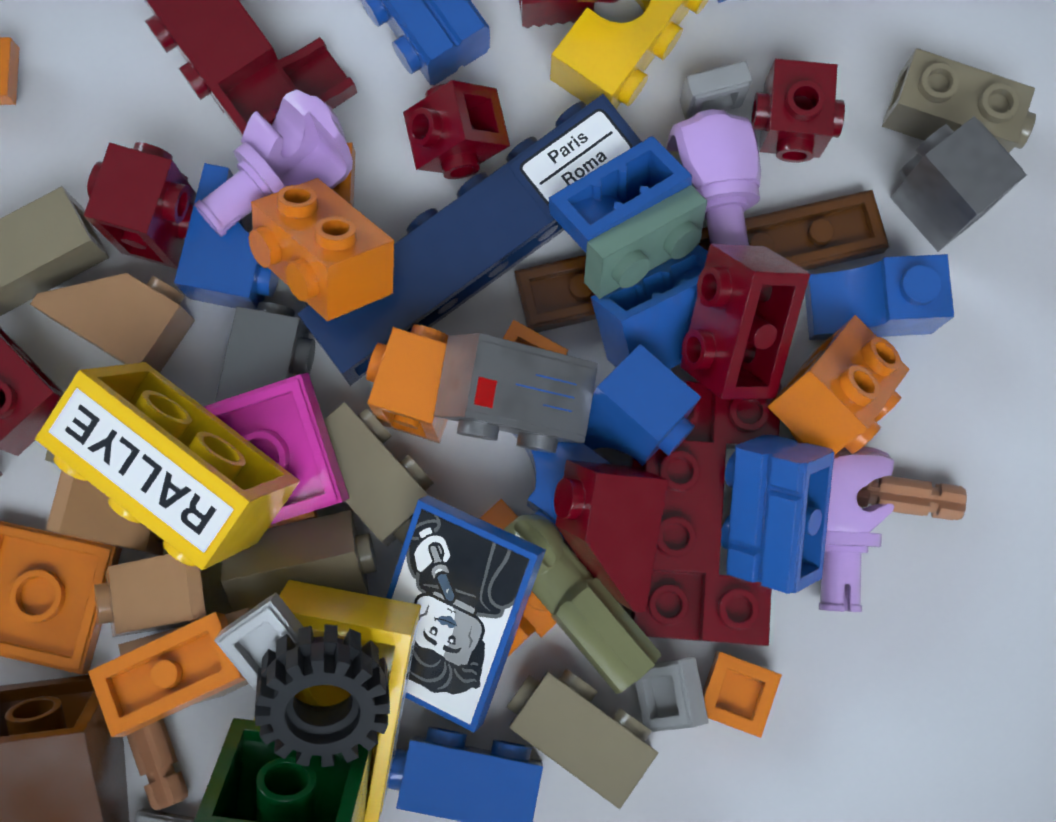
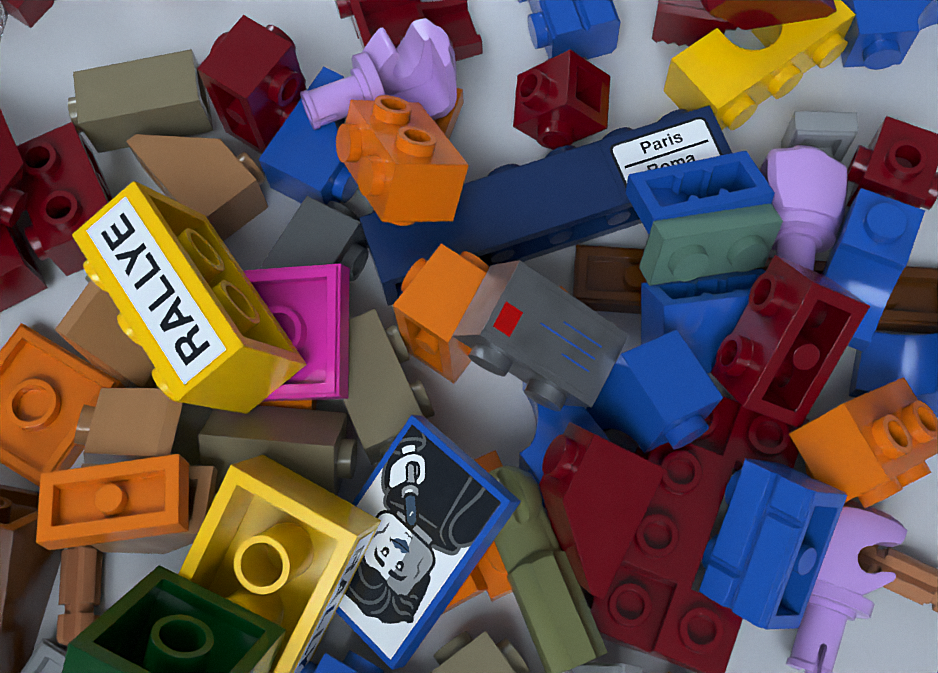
camera: 25 degrees right, 10 degrees down
(255, 632) = (214, 497): light grey tile -> none
(322, 728) = (231, 598): black tyre -> none
(796, 206) = (872, 254): none -> blue arch

